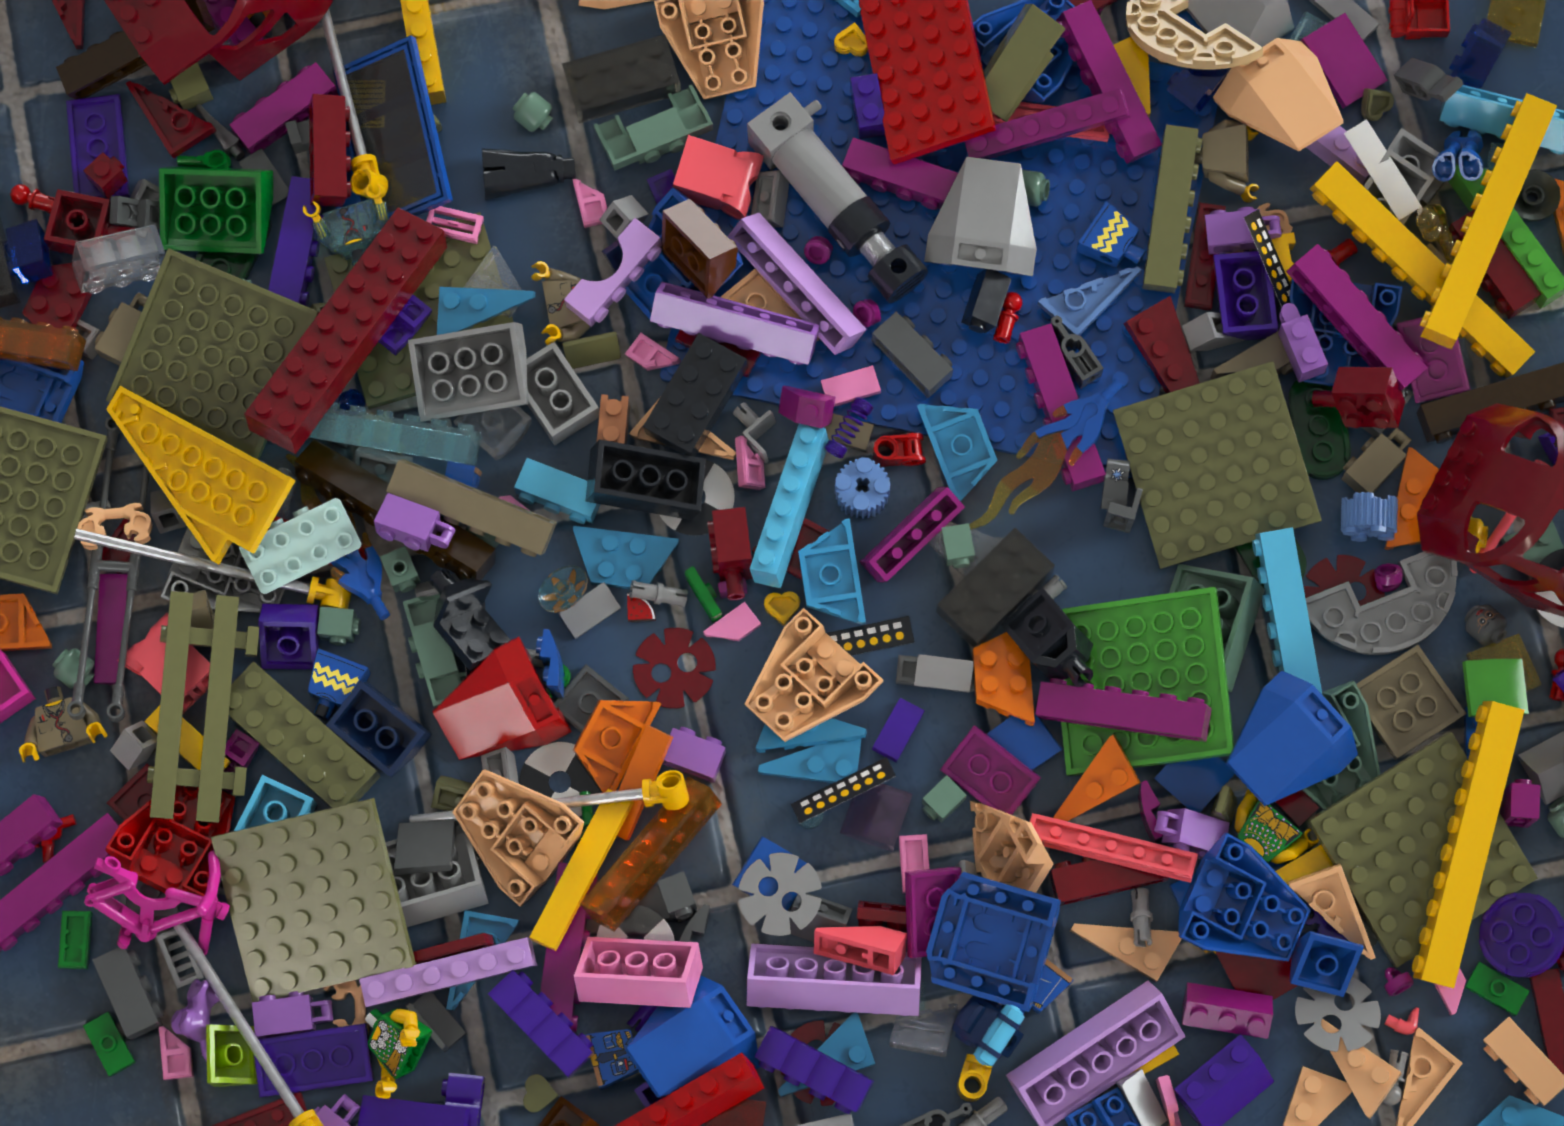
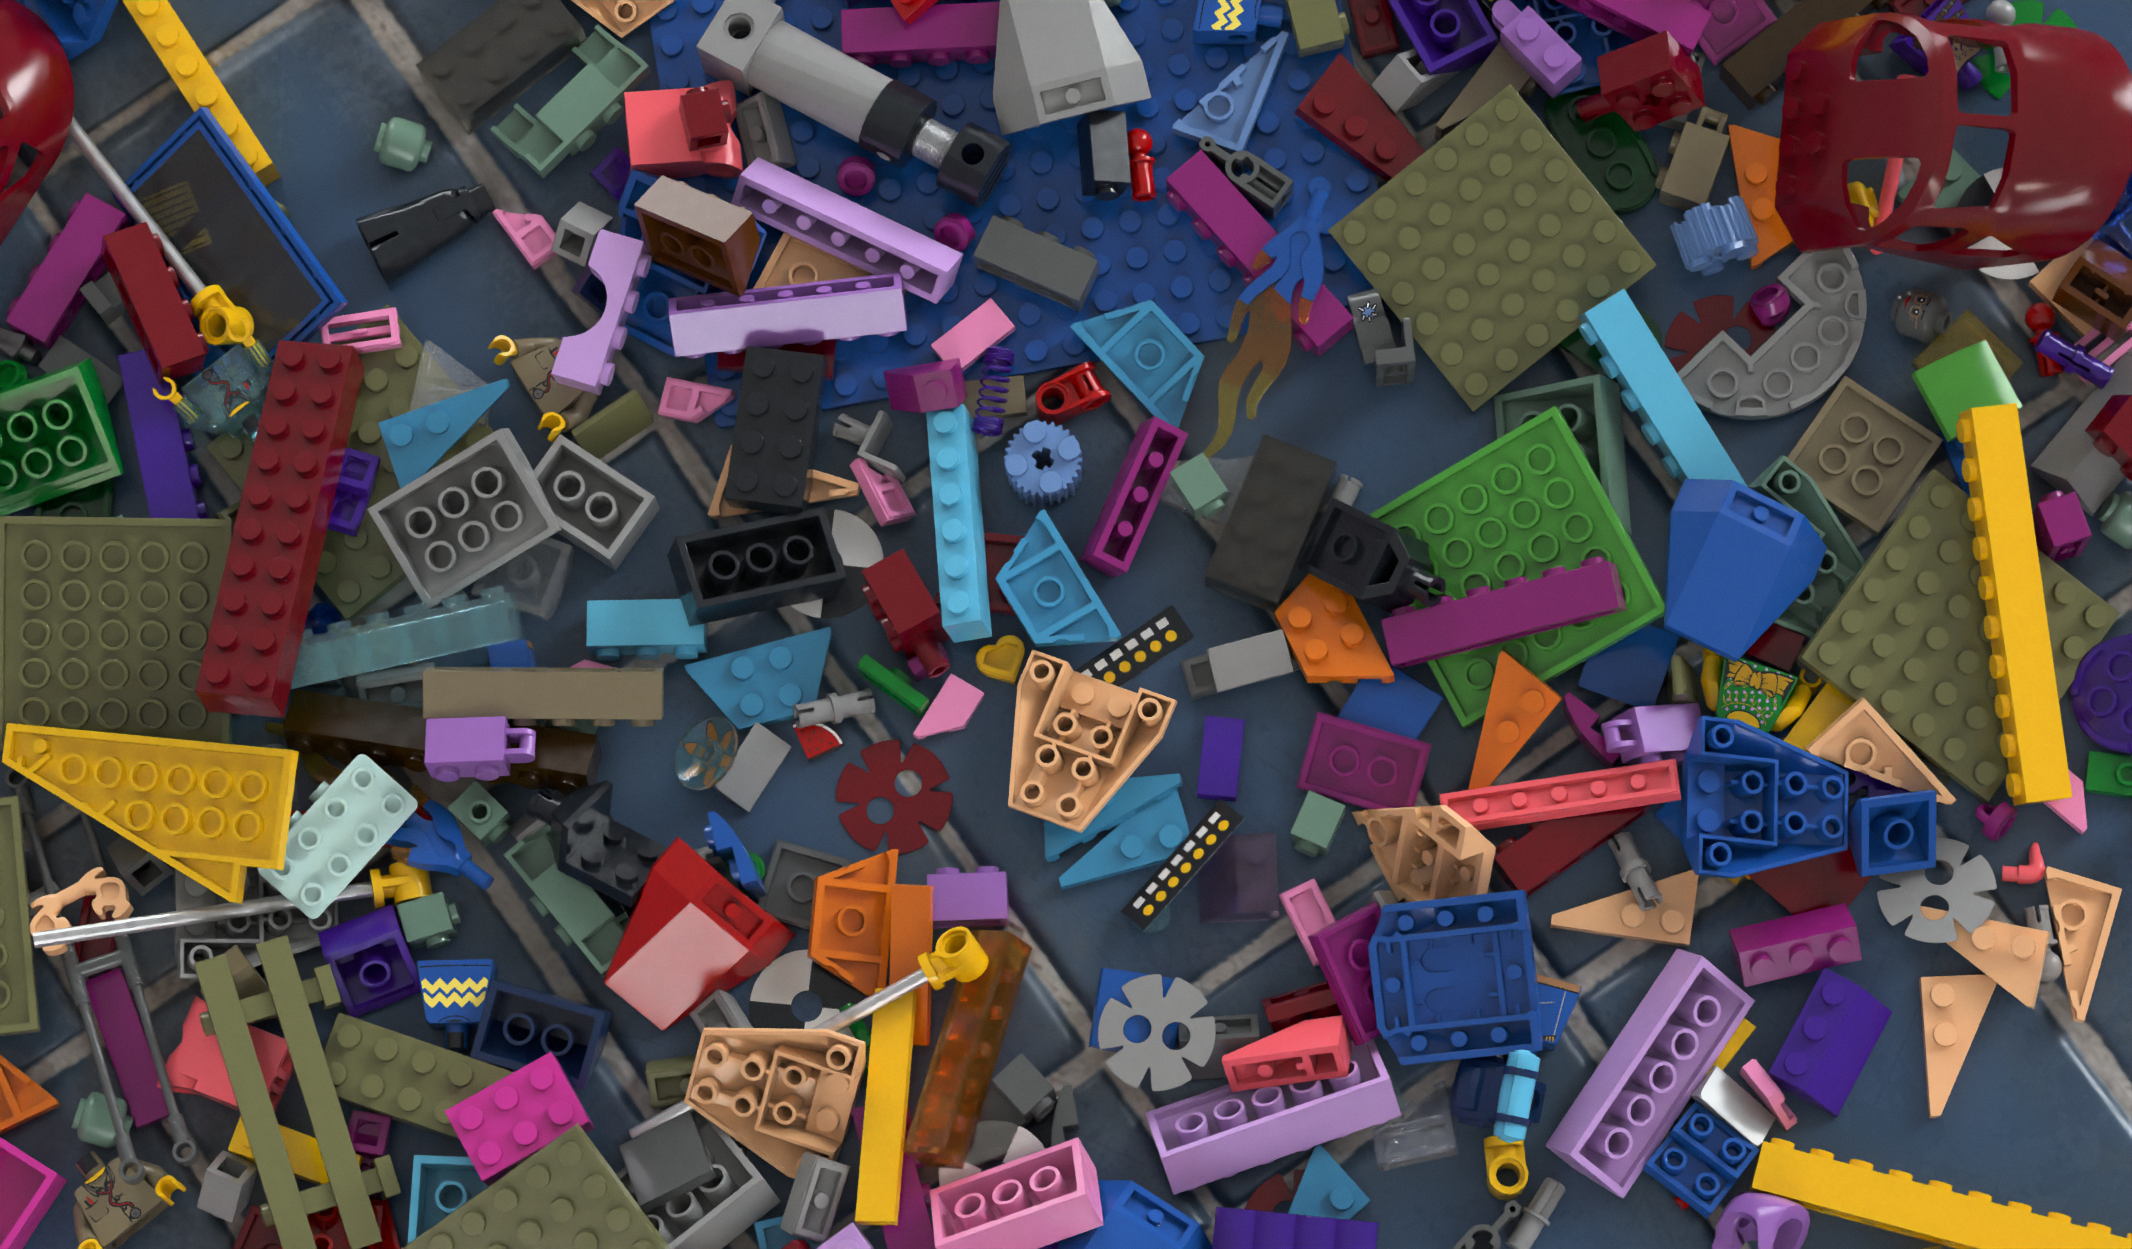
camera: 15 degrees left, 0 degrees up
(338, 778) = (517, 1117): none -> dark pink piece
(510, 910) = (814, 1197): none -> light grey slope
(613, 419) = (680, 504): nougat brick -> none
(733, 172) = (704, 118): none -> dark red brick

